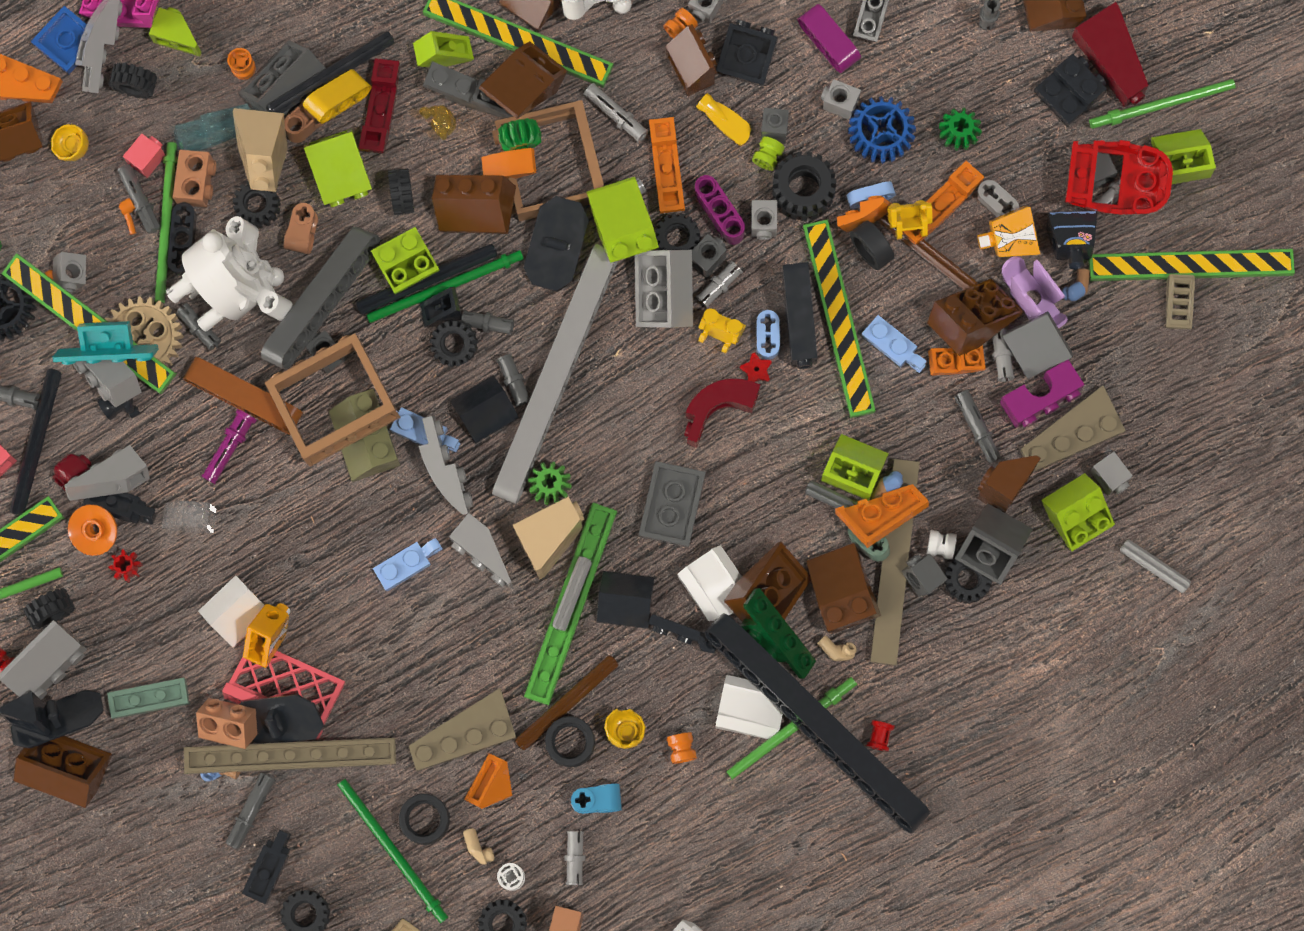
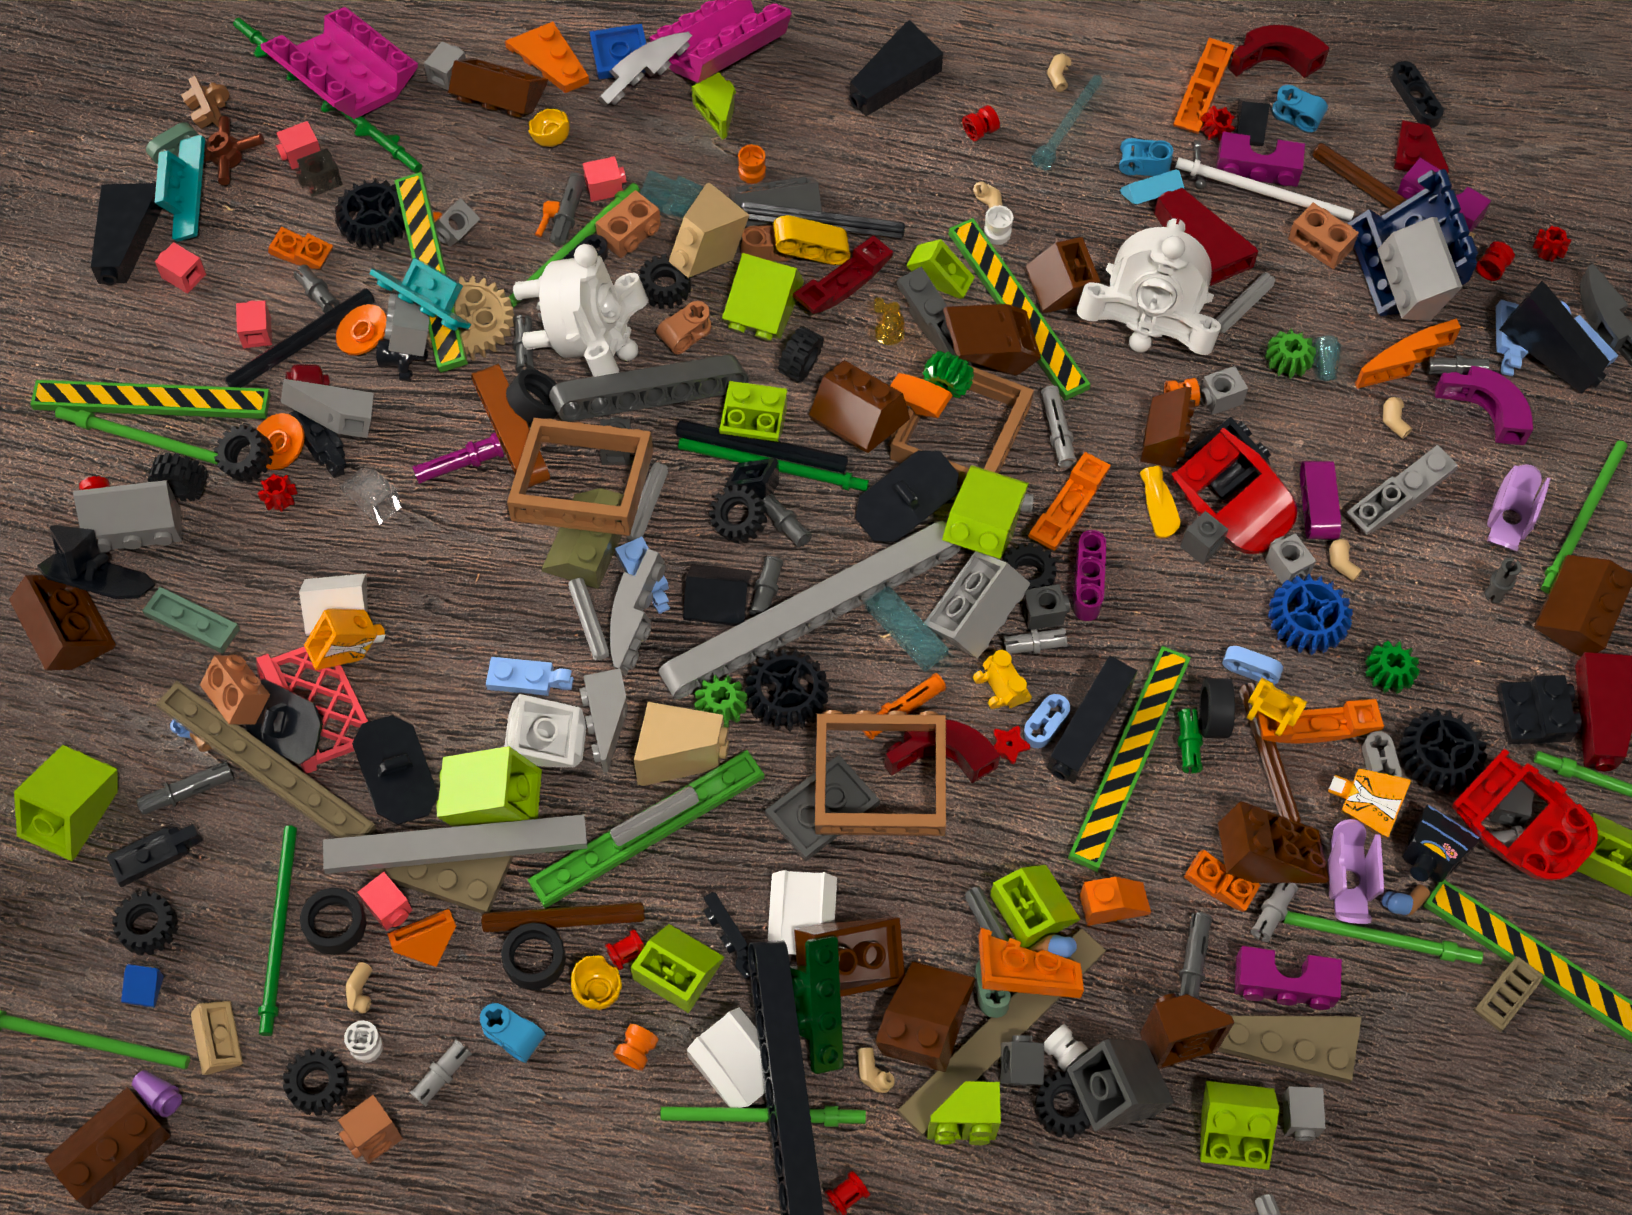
camera: 30 degrees right, 15 degrees down
(63, 560) = (233, 444): none -> black tyre
(67, 403) = (361, 329): none -> orange dish
(133, 80) = (645, 113): black tyre -> none
(181, 880) = (64, 801): none -> lime slope
(241, 374) = (524, 403): none -> black tyre
(375, 692) = (395, 769): none -> black shield
(376, 358) = (648, 499): none -> light grey axle
(413, 492) = (588, 619): none -> light grey axle
(448, 781) = (385, 901): none -> coral brick
(451, 659) = (488, 788): none -> slope
(453, 594) = (546, 731): none -> white slope
(460, 711) = (454, 844): none -> light grey tile
(574, 442) = (769, 675): none -> black gear
(624, 692) = (625, 949): none -> red bush
(625, 599) = (701, 862): black slope -> none
(628, 338) = (907, 628): none -> clear light blue plate
(661, 423) = (913, 699): none -> orange pin
(666, 678) = (676, 967): none -> lime slope
(719, 491) = (879, 822): none -> medium nougat window
(767, 155) = (1178, 558): lime wheel -> none
(767, 209) = (1130, 602): light grey brick -> none
(798, 82) = (1257, 513): none -> red slope
(804, 205) = (1196, 589): black tyre -> none
(869, 279) = (1190, 741): none -> green pin
(870, 210) = (1242, 673): orange slope -> none
(872, 73) = (1340, 559): none -> tan arm
(893, 344) = (1167, 819): light blue plate -> none
(900, 425) = (1113, 900): none -> orange slope
(918, 629) = (968, 1114): none -> lime slope
(1019, 149) = (1452, 737): none -> black gear
(1038, 345) = (1319, 922): tile -> none
(1124, 301) = (1446, 950): none -> bright green bar

